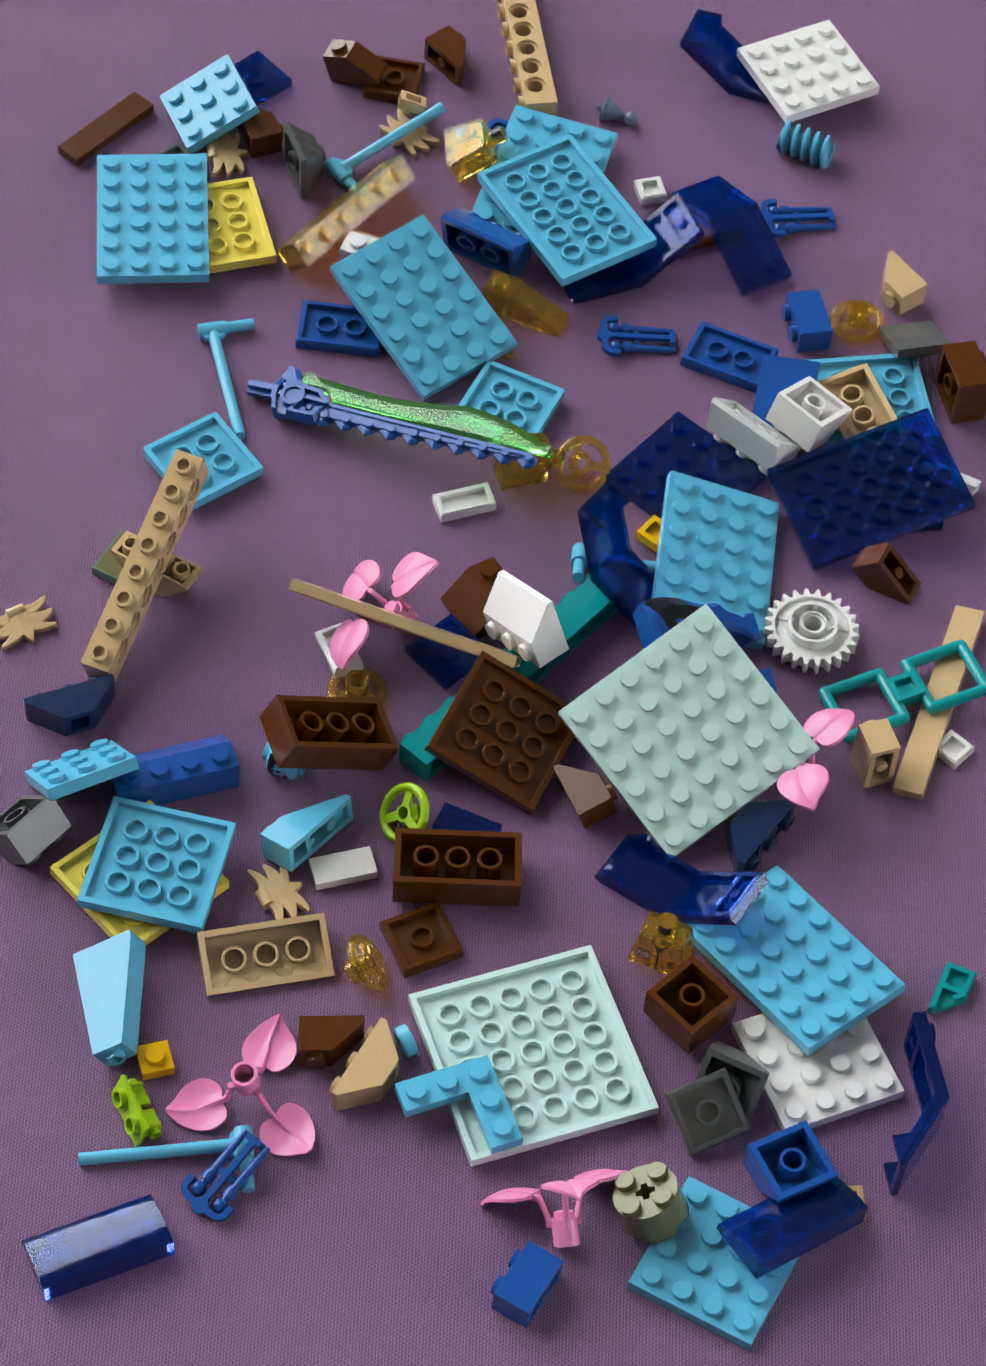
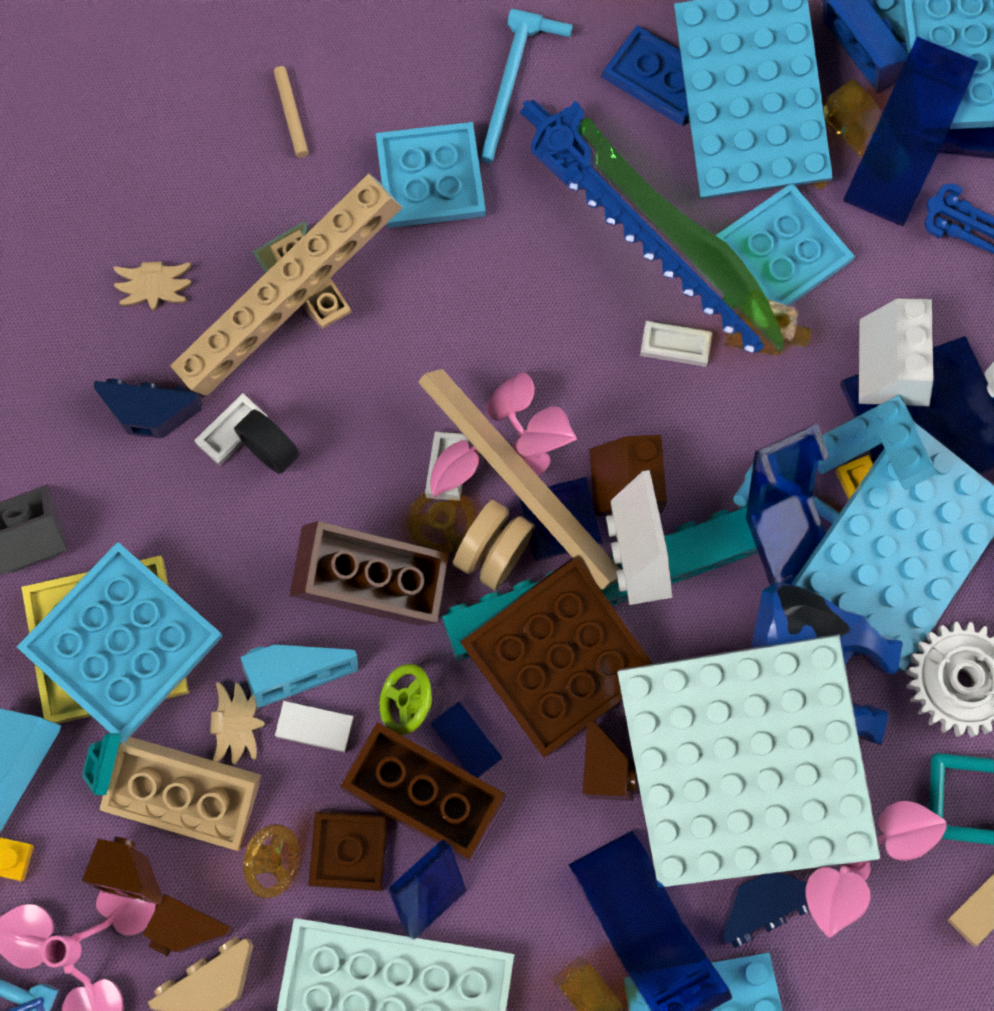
camera: 30 degrees right, 20 degrees up
(61, 462) = (291, 112): none -> tan bar
(81, 769) = (102, 495): medium azure plate -> none
(149, 697) = (219, 438): none -> white tile
(180, 772) = (202, 529): blue slope -> none
(191, 672) = (266, 441): none -> black tyre
(192, 952) = (100, 763): none -> teal tile
(257, 1018) = (122, 871): none -> reddish brown slope
(405, 1041) = (263, 970): medium azure tile -> none
(409, 679) = (493, 544): none -> tan wheel
(501, 922) = (427, 889): none -> clear blue tile
(558, 290) = (910, 131): none -> clear blue windscreen
(578, 453) = (827, 346): clear yellow piece -> none
(636, 436) = (897, 353): none -> white slope
(664, 480) = (884, 424): none -> medium azure plate
(875, 753) = (949, 874): tan brick -> none

